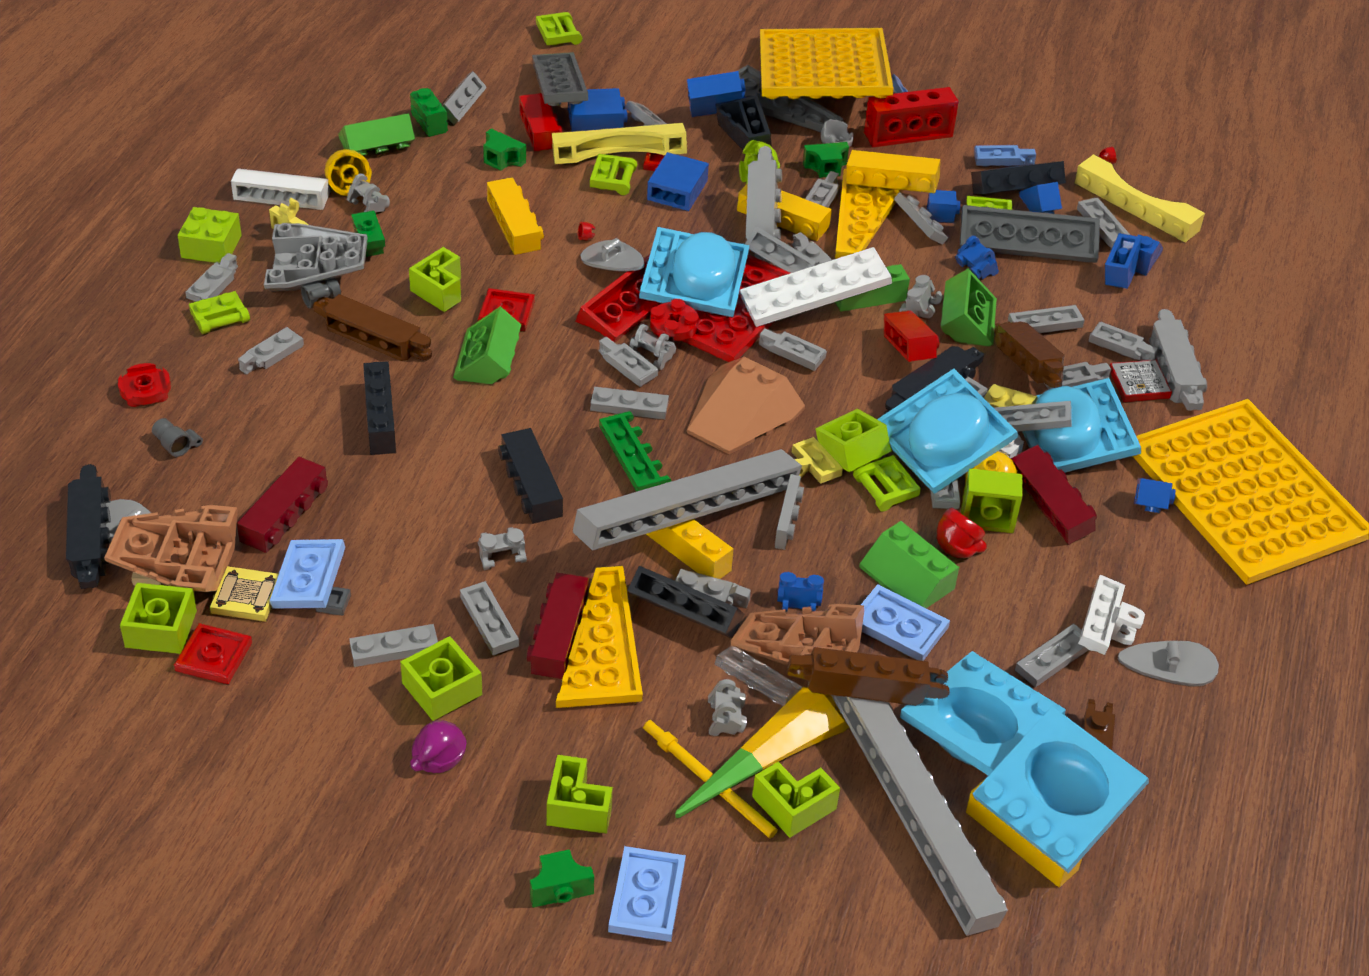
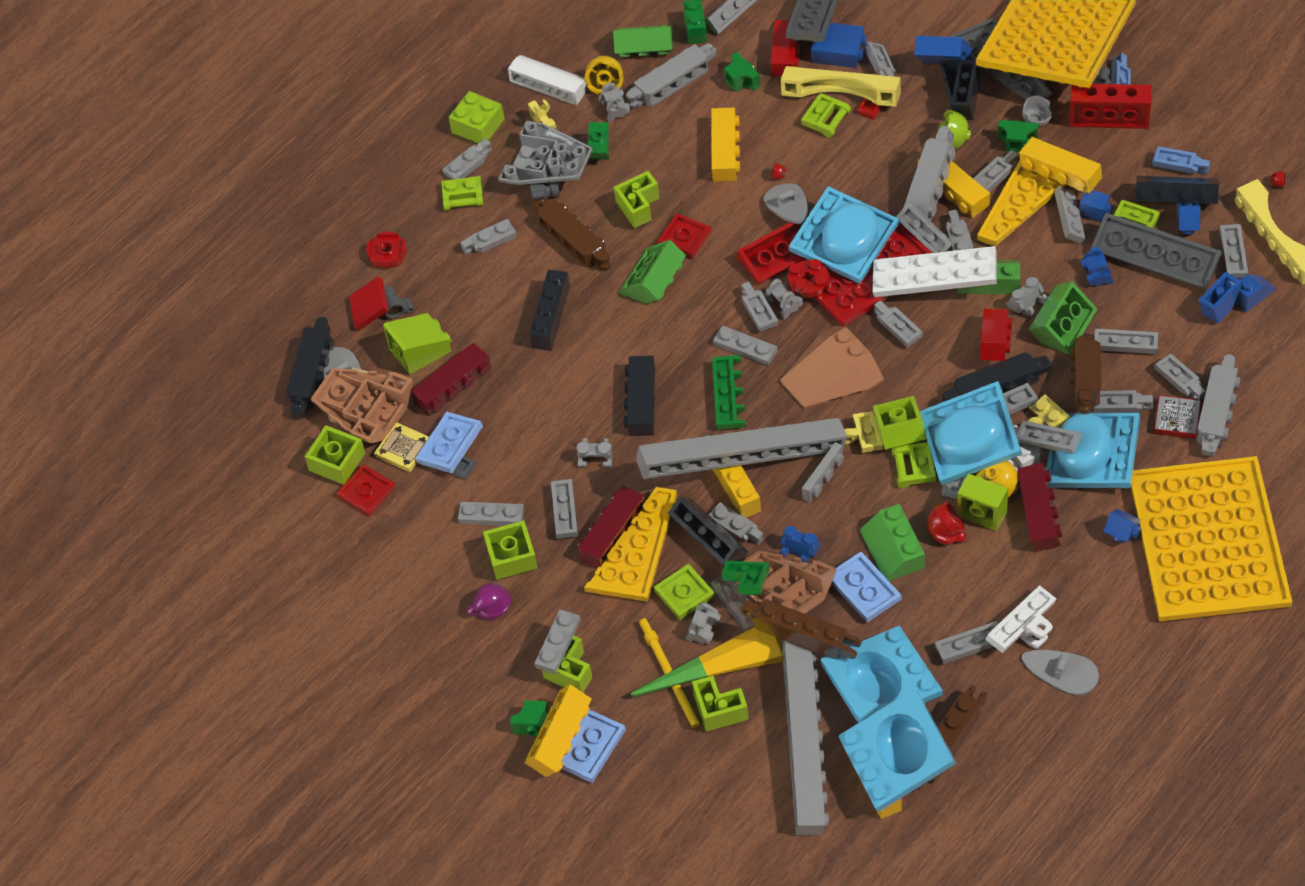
camera: 30 degrees right, 10 degrees up
(143, 441) = (368, 303): none -> red tile
(221, 471) = (416, 341): none -> lime slope
(423, 164) = (671, 76): none -> light grey hinge
(558, 769) = (557, 641): none -> light grey plate
(606, 882) = (558, 731): none -> yellow brick
(677, 181) = (876, 134): blue brick -> none
(684, 678) = (684, 591): none -> lime plate
(770, 632) = (750, 574): none -> green plate

